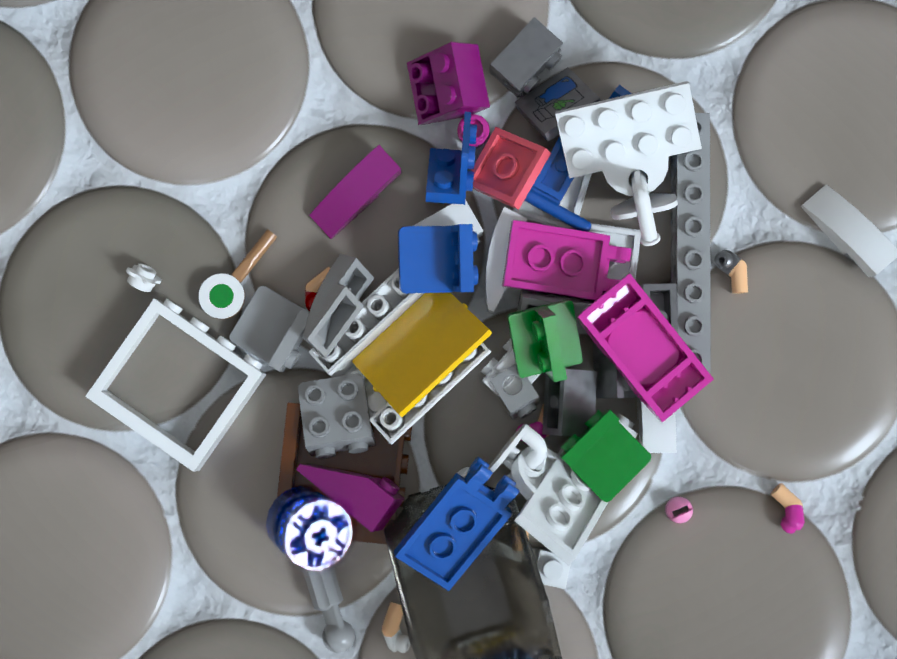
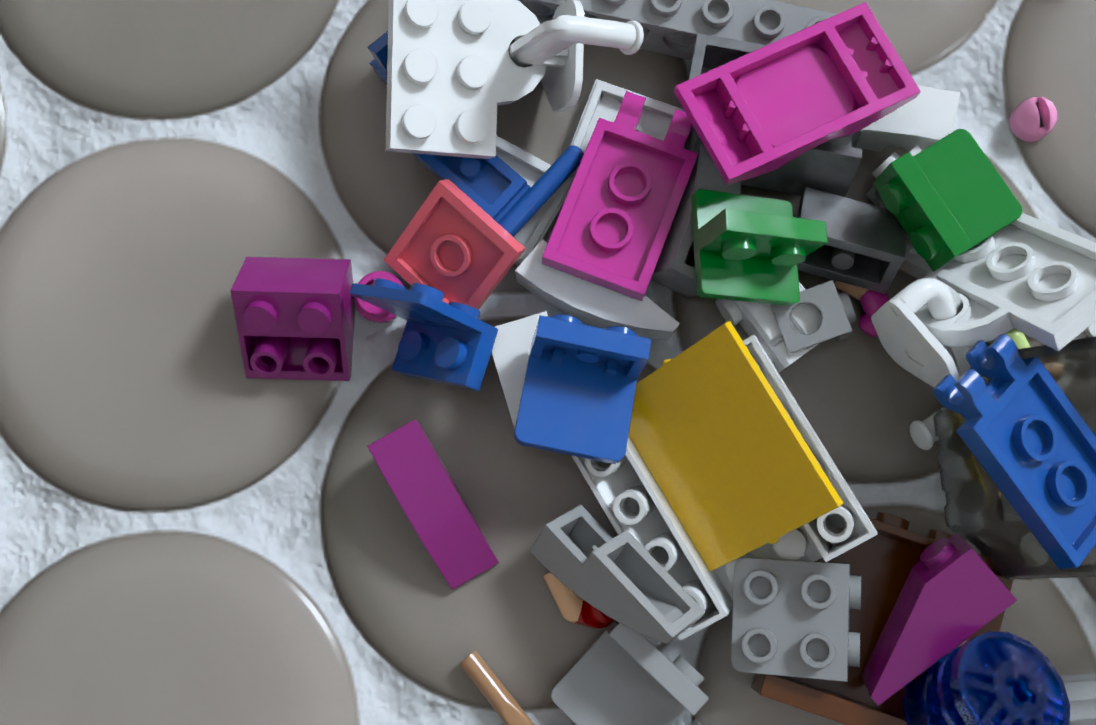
camera: 75 degrees left, 5 degrees down
(526, 58) = (286, 188): flat silver brick -> none
(556, 94) = (362, 169): flat silver tile -> none

